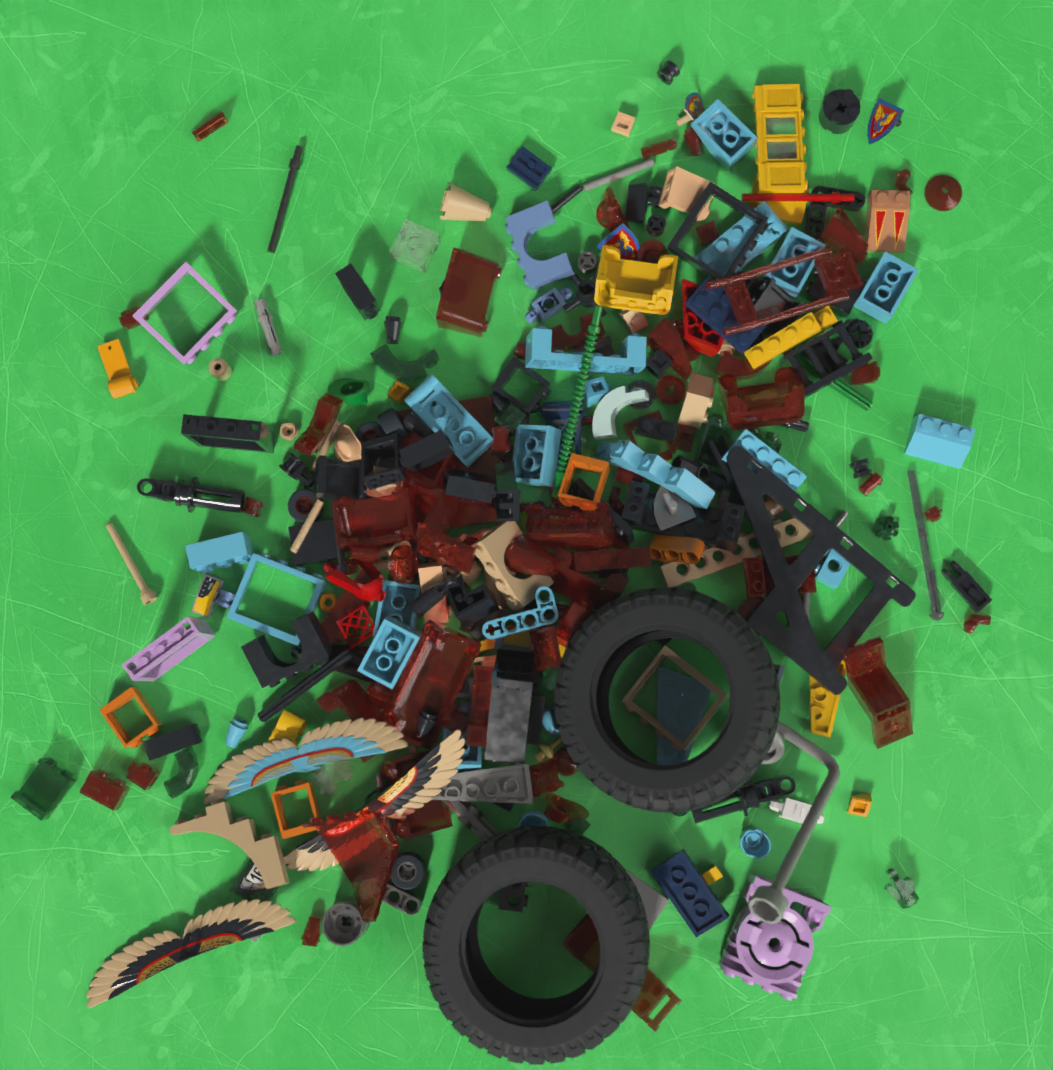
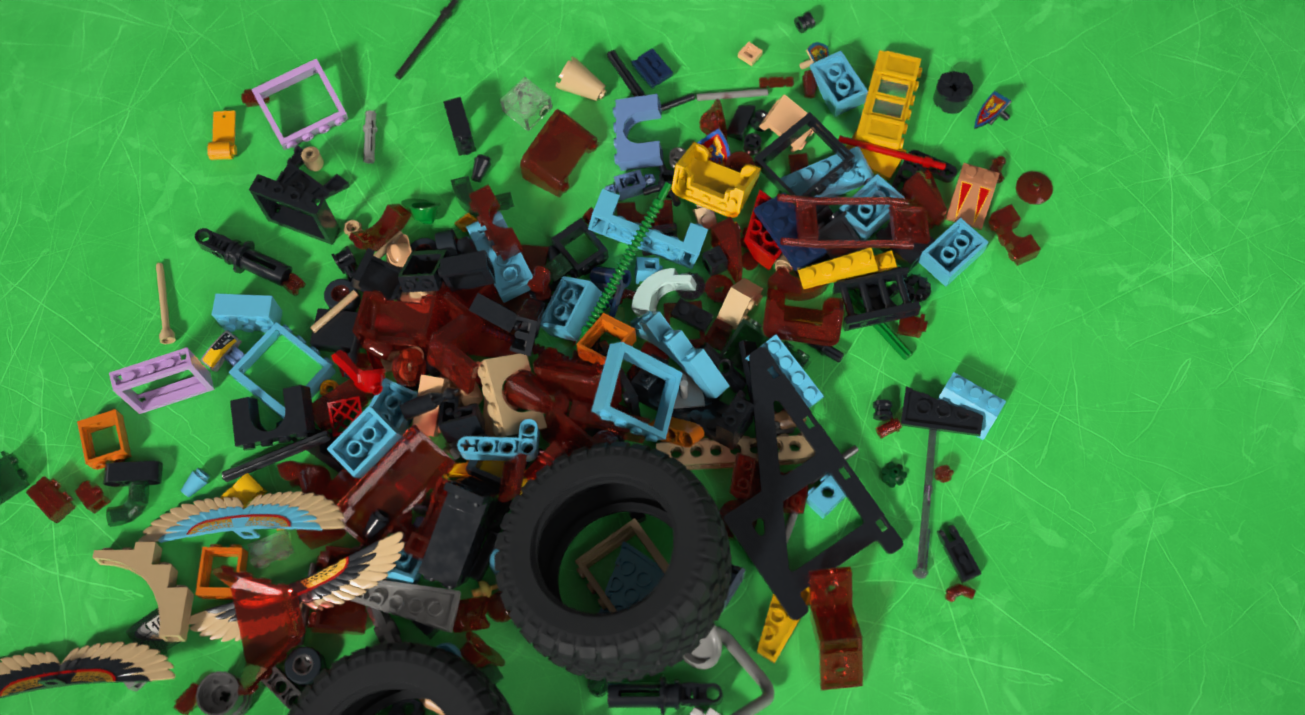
camera: 15 degrees right, 15 degrees down
(219, 402) = (298, 179): none -> black wing
(451, 407) = (504, 238): none -> clear red arch
(505, 184) = (625, 74): none -> black axle
(610, 534) = (607, 384): none -> medium azure window
(910, 459) = (938, 415): none -> black wing
(924, 243) = (1019, 248): none -> clear red arch

